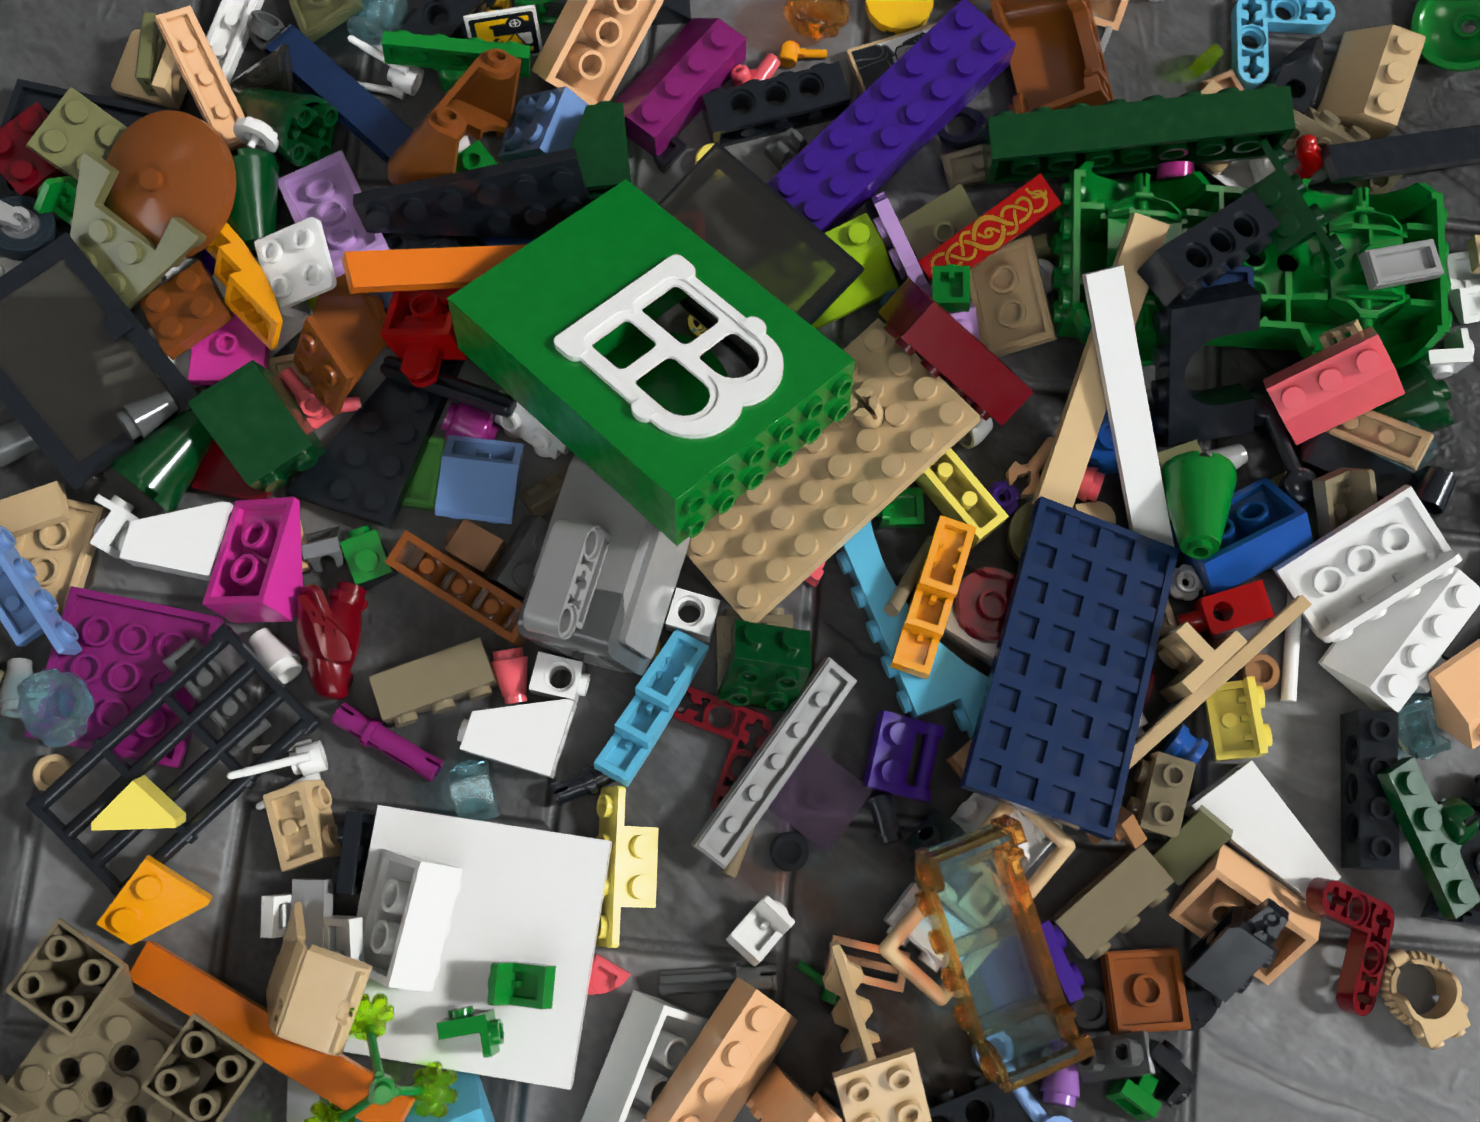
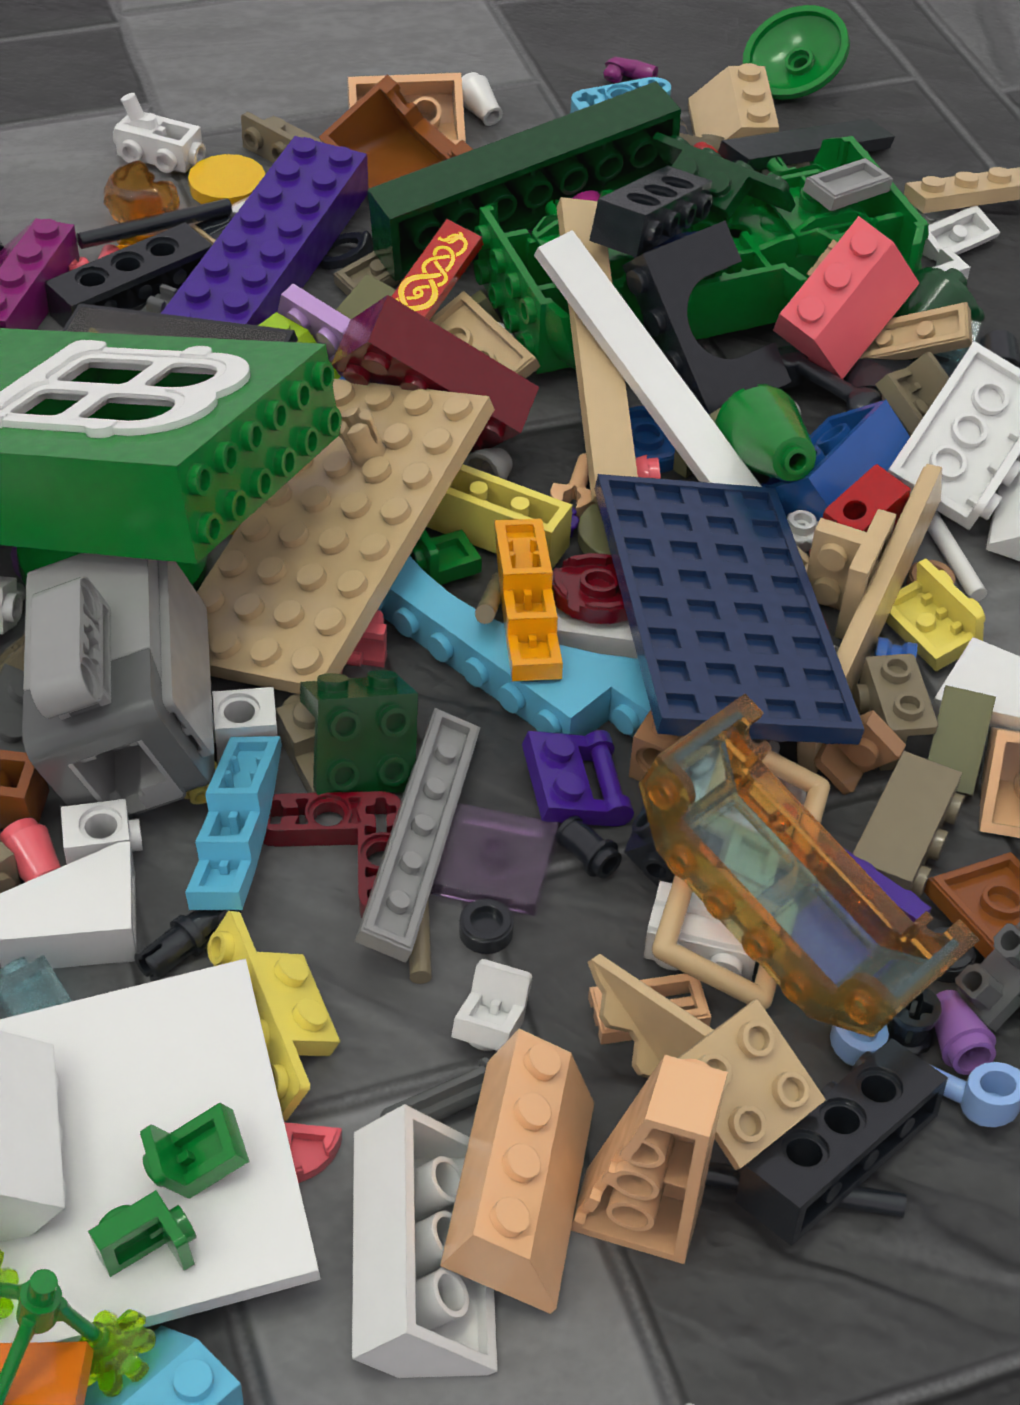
camera: 20 degrees left, 30 degrees down
(815, 47) = (153, 223): none -> black bar
(826, 995) = (617, 1046): green hand -> none

